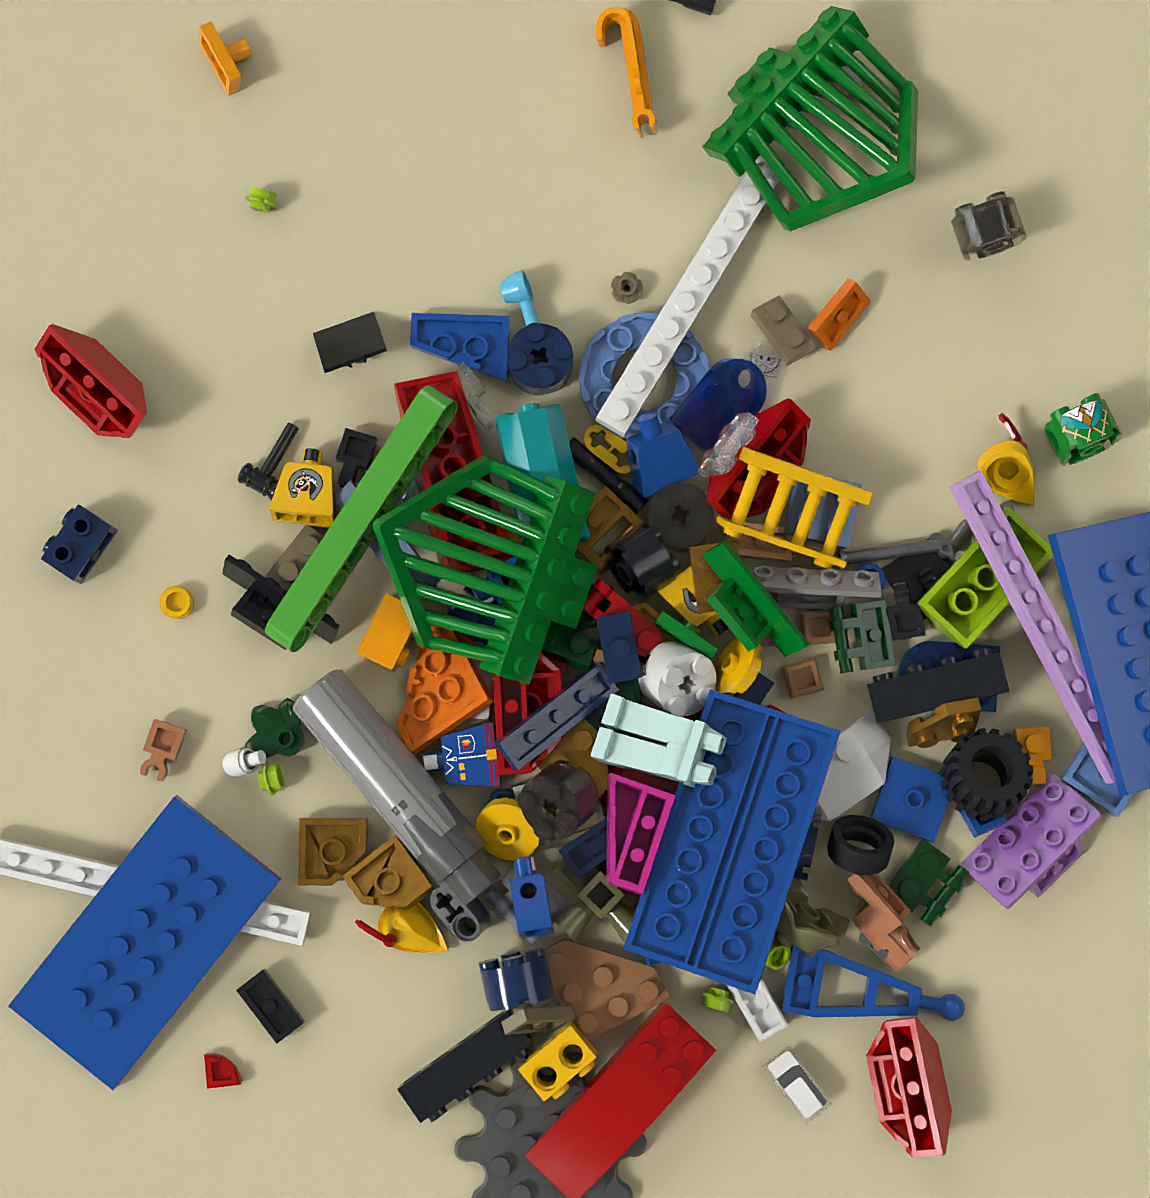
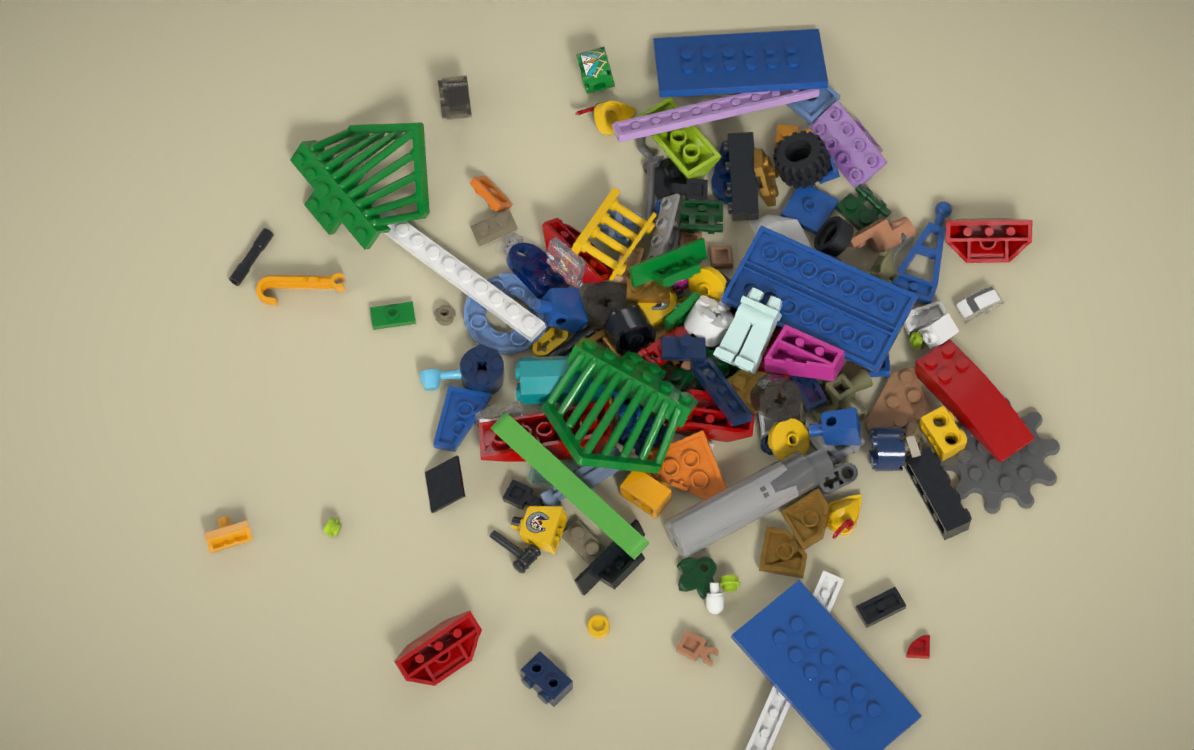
camera: 80 degrees left, 20 degrees down
(467, 757) = (737, 456): blue torso -> none
(612, 214) = (392, 315): none -> green plate
(728, 1031) = (939, 330): none -> white brick

